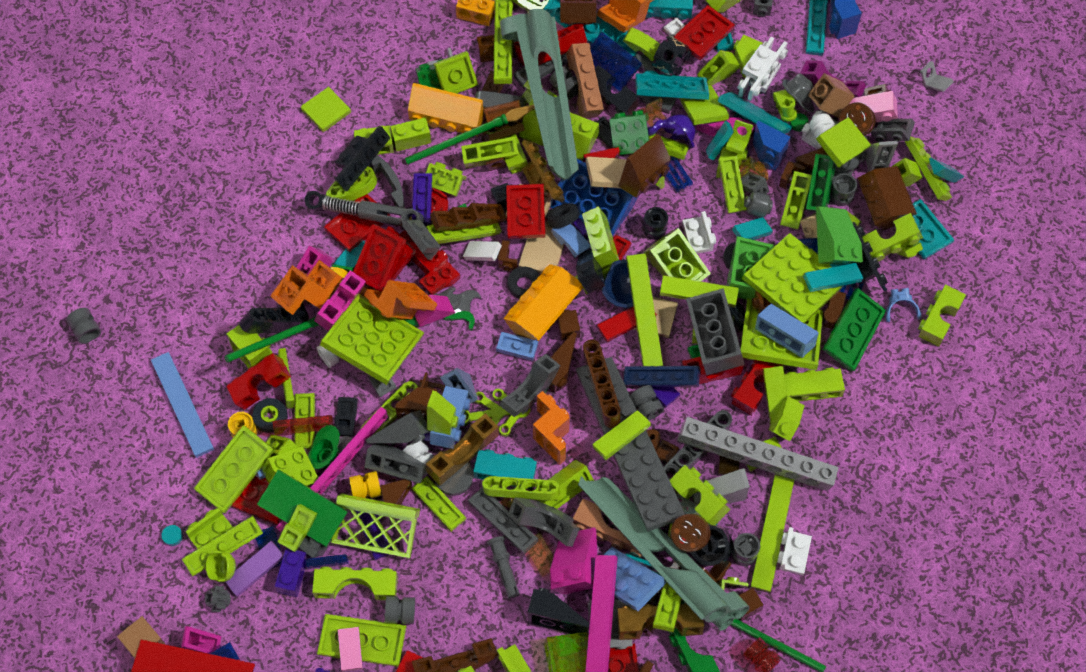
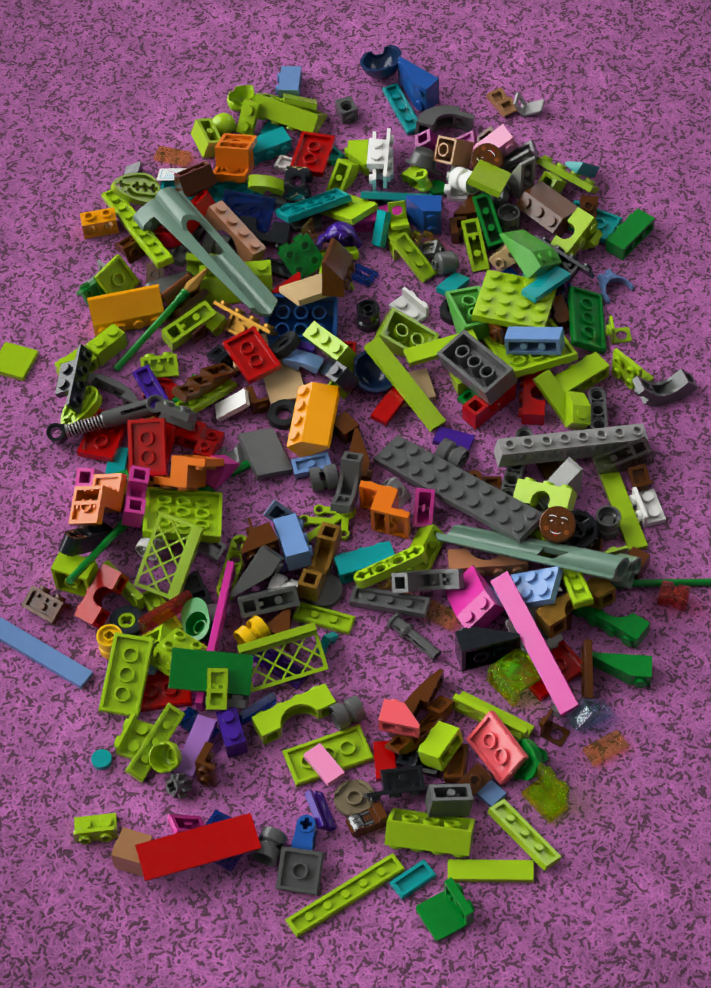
camera: 25 degrees left, 10 degrees down
(128, 597) = (95, 828): none -> lime bracket
(211, 360) = (44, 604): none -> bracket
(249, 592) = (206, 766): none -> reddish brown bracket
(348, 384) = (186, 560): none -> lime fence
(426, 527) = (326, 640): none -> teal tile
(433, 643) = (398, 719): none -> coral slope
(441, 414) = (289, 535): lime slope -> none
(472, 631) = (424, 694): none -> reddish brown slope
(483, 313) = (265, 453): none -> dark grey tile
(524, 368) = (330, 475): none -> dark grey wheel
(576, 411) = (403, 493): none -> light grey bracket
(584, 449) = (424, 507): none -> dark pink slope
(605, 390) = (406, 454): reddish brown beam -> none
(621, 435) = (450, 483): lime tile -> none
(662, 376) = (452, 425): dark blue tile -> none
(801, 492) = (623, 457): none -> clear smoke slope
(804, 519) = (639, 477): none -> reddish brown bracket
(809, 424) = (597, 400): none -> dark grey beam
(847, 52) = (443, 117): none -> dark grey arch
(863, 404) = (627, 369): none -> lime bracket
(871, 354) = (611, 331): none -> lime bracket
(883, 442) = (666, 391): none -> dark grey arch
(913, 62) = (501, 102): none -> medium nougat slope
(927, 214) = (589, 204): none -> reddish brown bracket
(934, 327) = (649, 289): lime arch -> none
(950, 261) = (629, 234): none -> green brick

